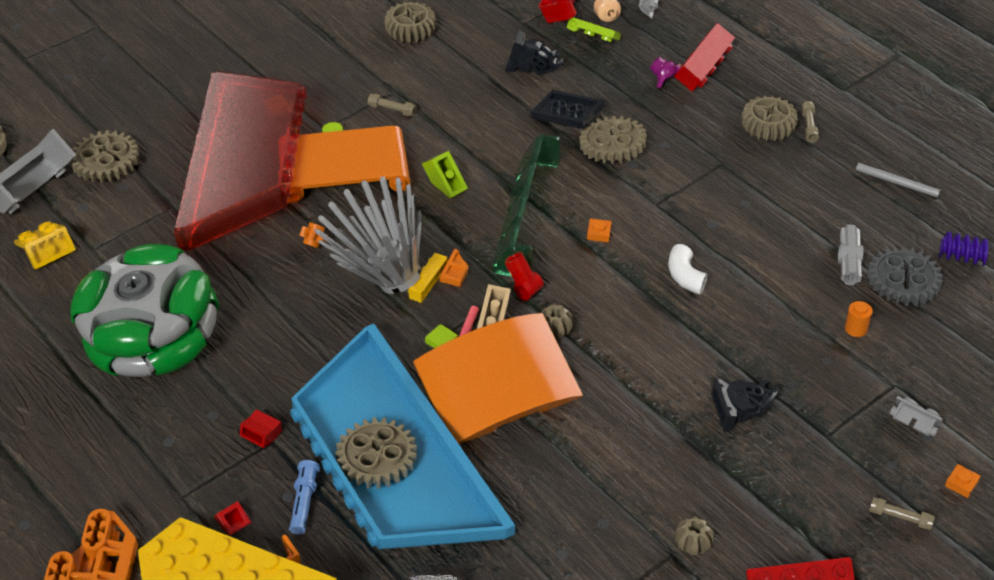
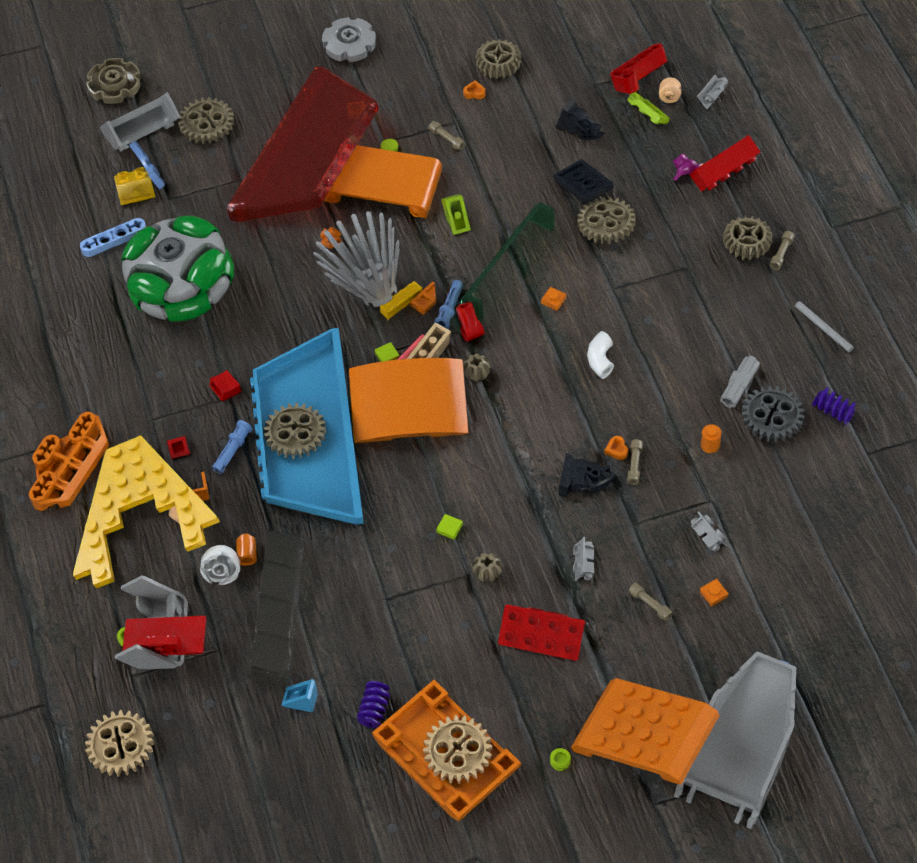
camera: 25 degrees right, 10 degrees up
(18, 321) = (112, 235): none -> light blue beam
(72, 227) = (151, 169): none -> medium blue tile
(235, 41) = (349, 39): none -> light grey piece
(398, 57) = (474, 90): none -> orange tile
(485, 250) = (447, 310): none -> medium blue pin
(619, 505) = (449, 526): none -> lime tile
(760, 361) = (616, 448): none -> orange tile
(796, 382) = (633, 473): none -> dark tan bar
(796, 492) = (582, 568): none -> light grey hinge

